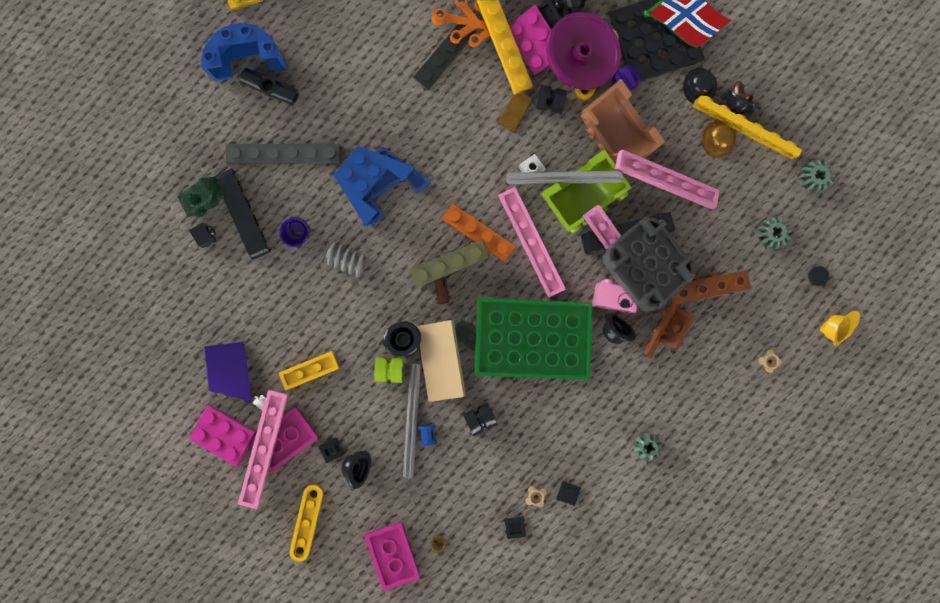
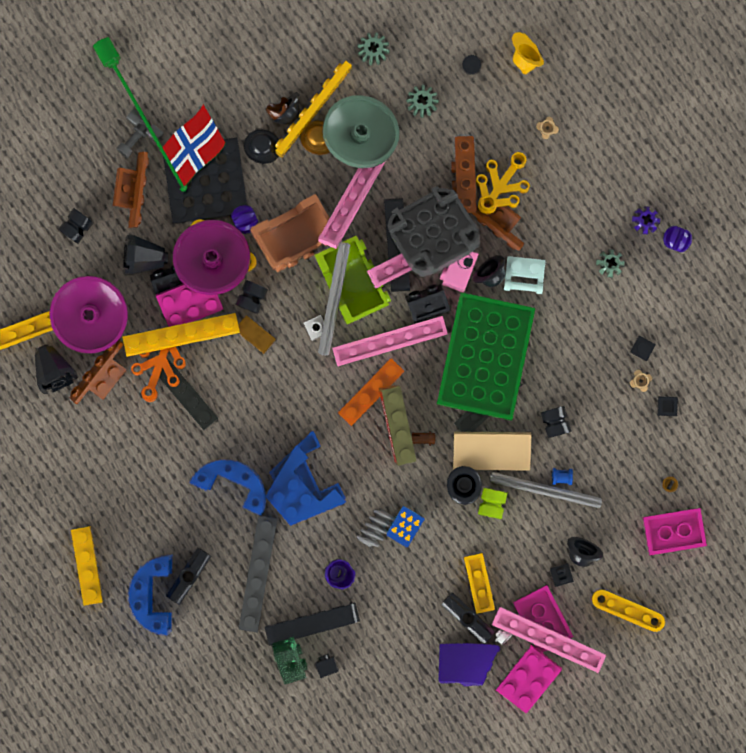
camera: 80 degrees left, 0 degrees up
(265, 375) = (477, 626): none -> black piece
(351, 287) = (405, 526): none -> blue piece
(374, 116) = (238, 473): none -> blue cylinder
(575, 272) = (427, 303): none -> black bracket
(626, 361) = (524, 268): none -> light aqua plate
(684, 510) = (677, 238): none -> dark purple piece
(695, 469) = (640, 222): none -> dark purple piece
(704, 325) = (500, 186): none -> yellow plant
(733, 177) = (360, 131): none -> sand green dish

